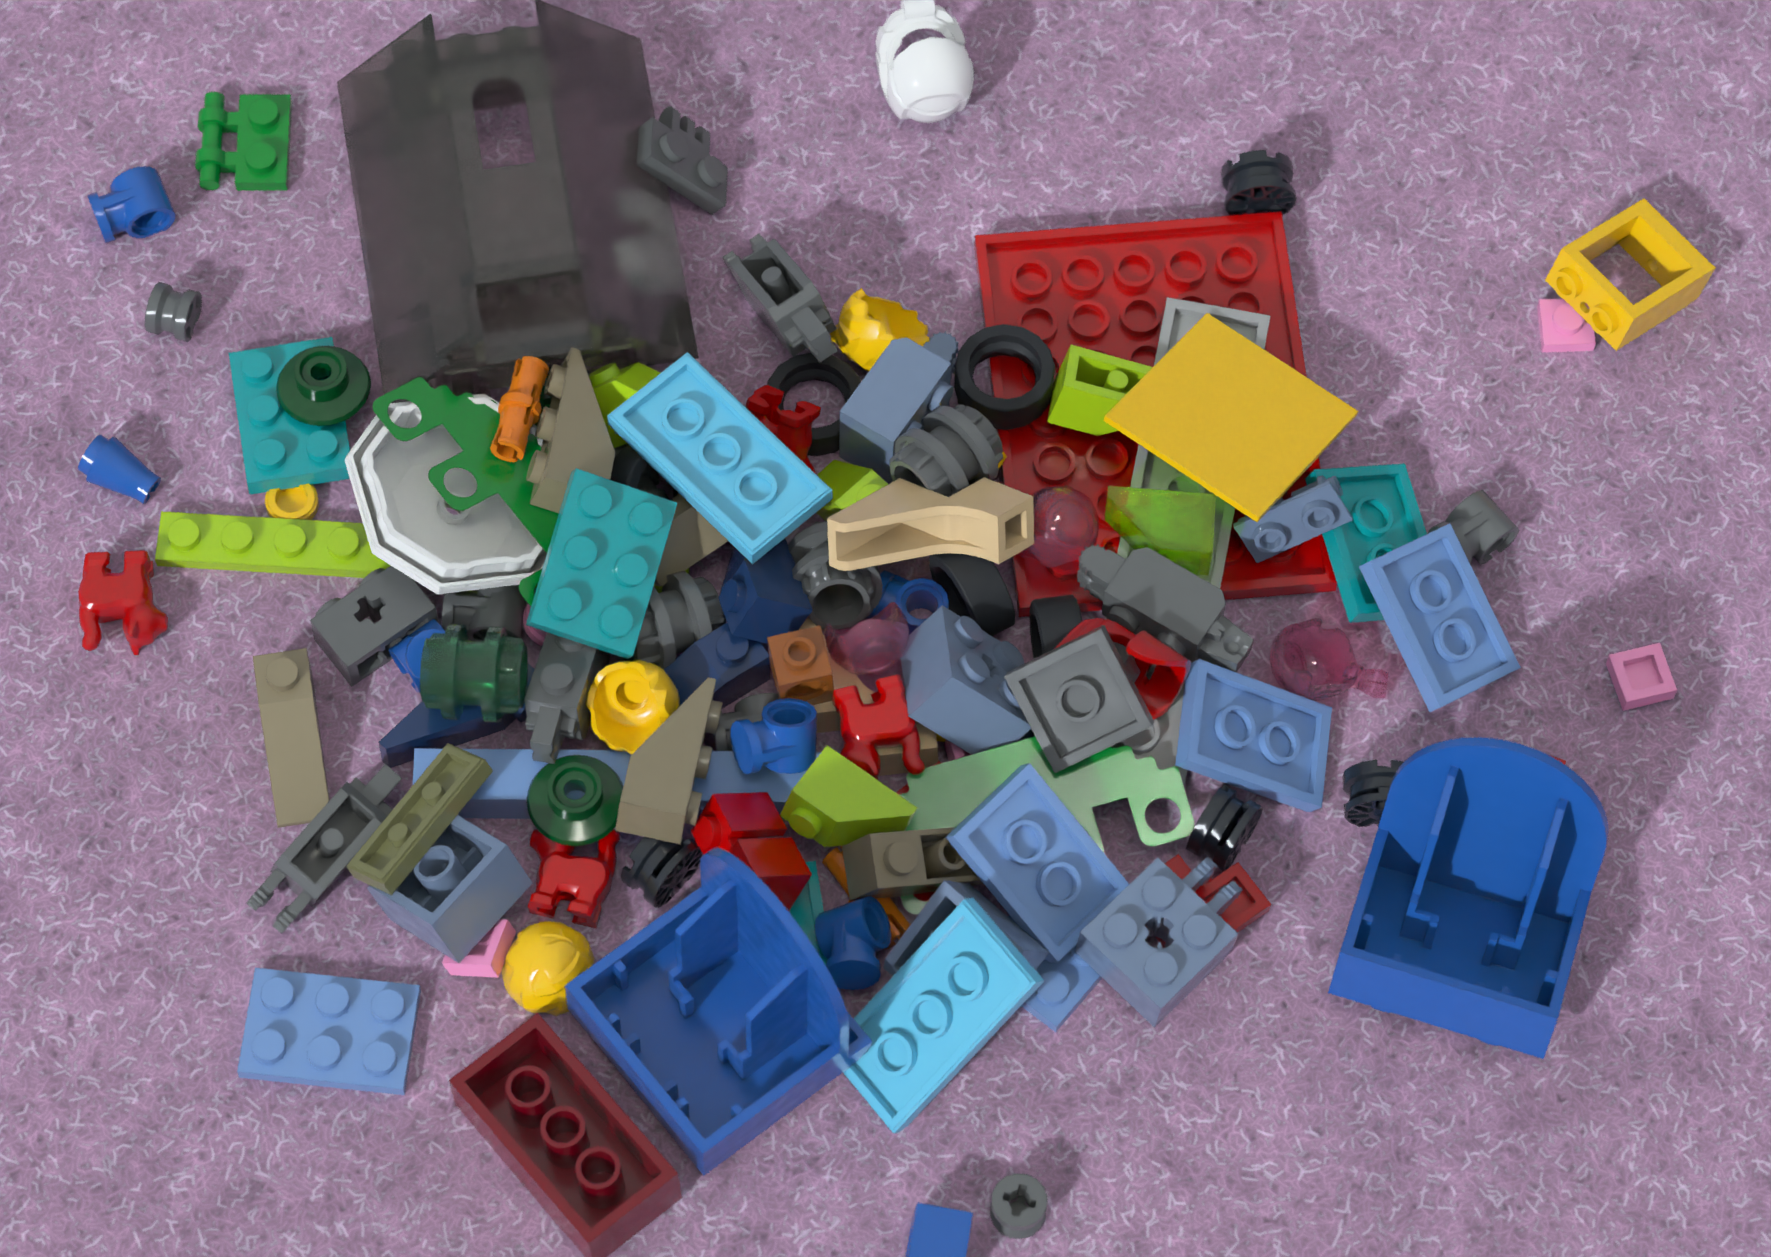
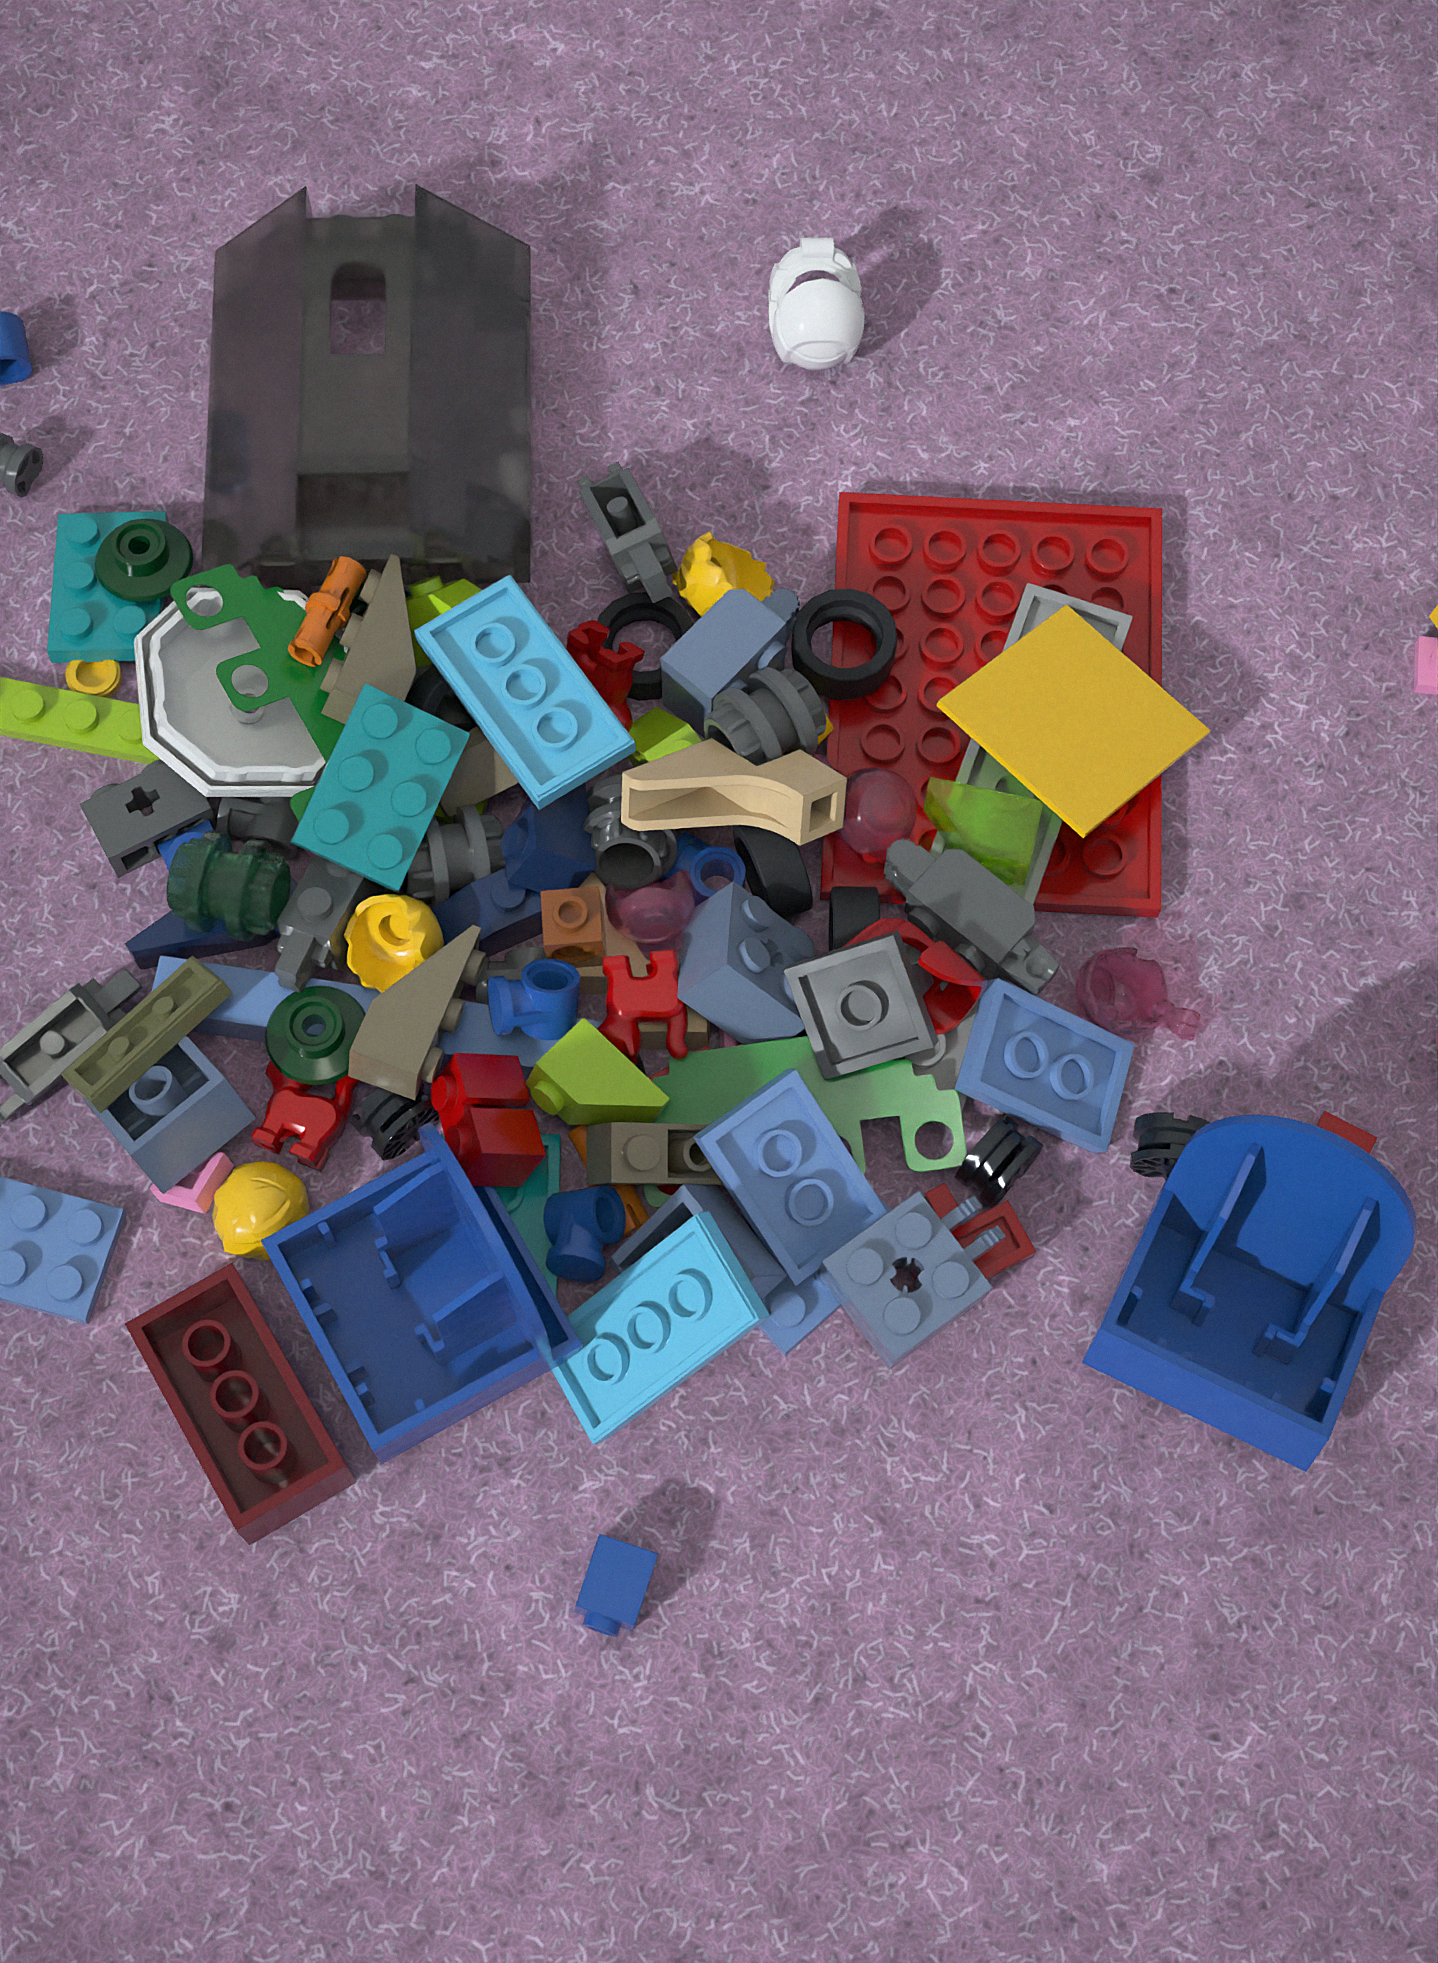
camera: 10 degrees right, 5 degrees up
(262, 142) = (135, 304): green plate -> none
(291, 735) = (41, 919): dark tan slope -> none
(681, 159) = (550, 374): dark grey hinge -> none
(1018, 1219) = (716, 1562): dark grey wheel -> none
(1089, 388) = (930, 667): lime slope -> none
(1258, 184) = (1142, 476): black wheel -> none
(1295, 520) = (1139, 835): sand blue hinge -> none
(1383, 520) = (1209, 873): teal plate -> none
(1439, 617) = (1264, 964): medium blue plate -> none
(1480, 527) = (1310, 875): dark grey piece -> none

